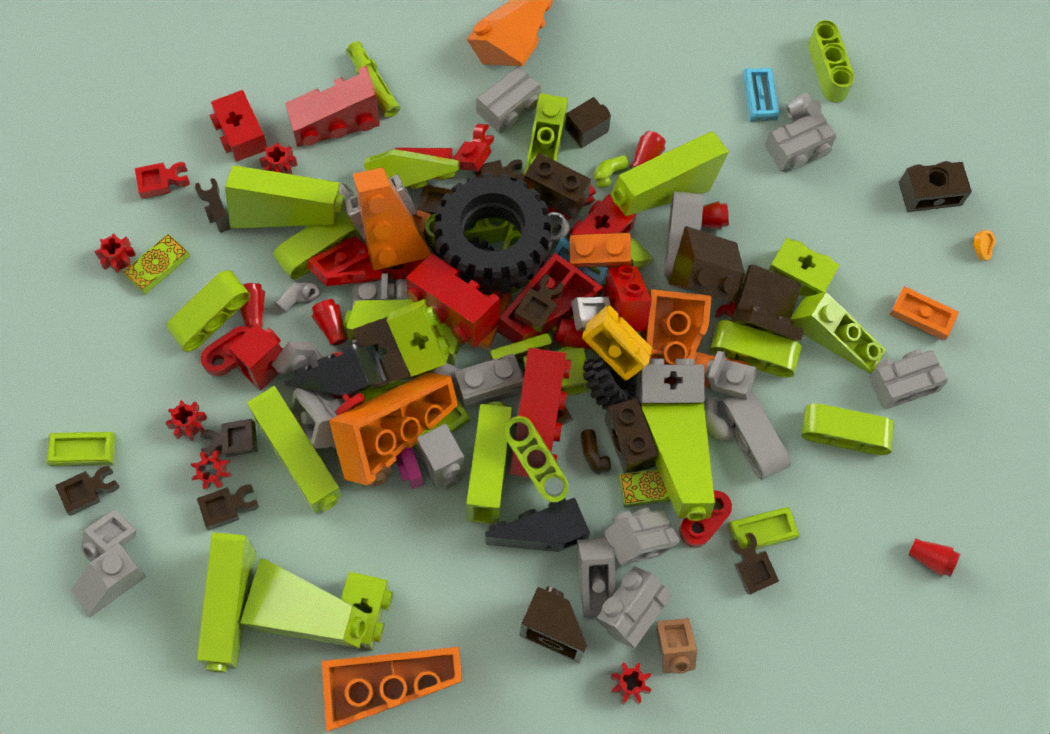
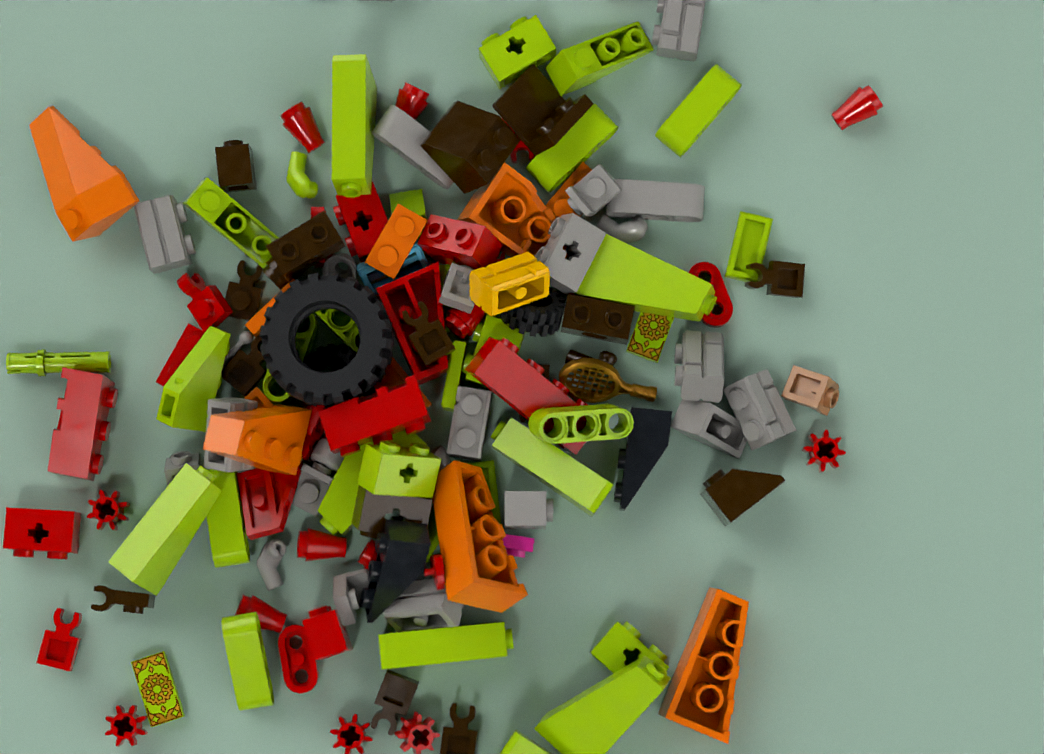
camera: 55 degrees left, 15 degrees up
(586, 482) = (617, 386): none -> pearl gold piece

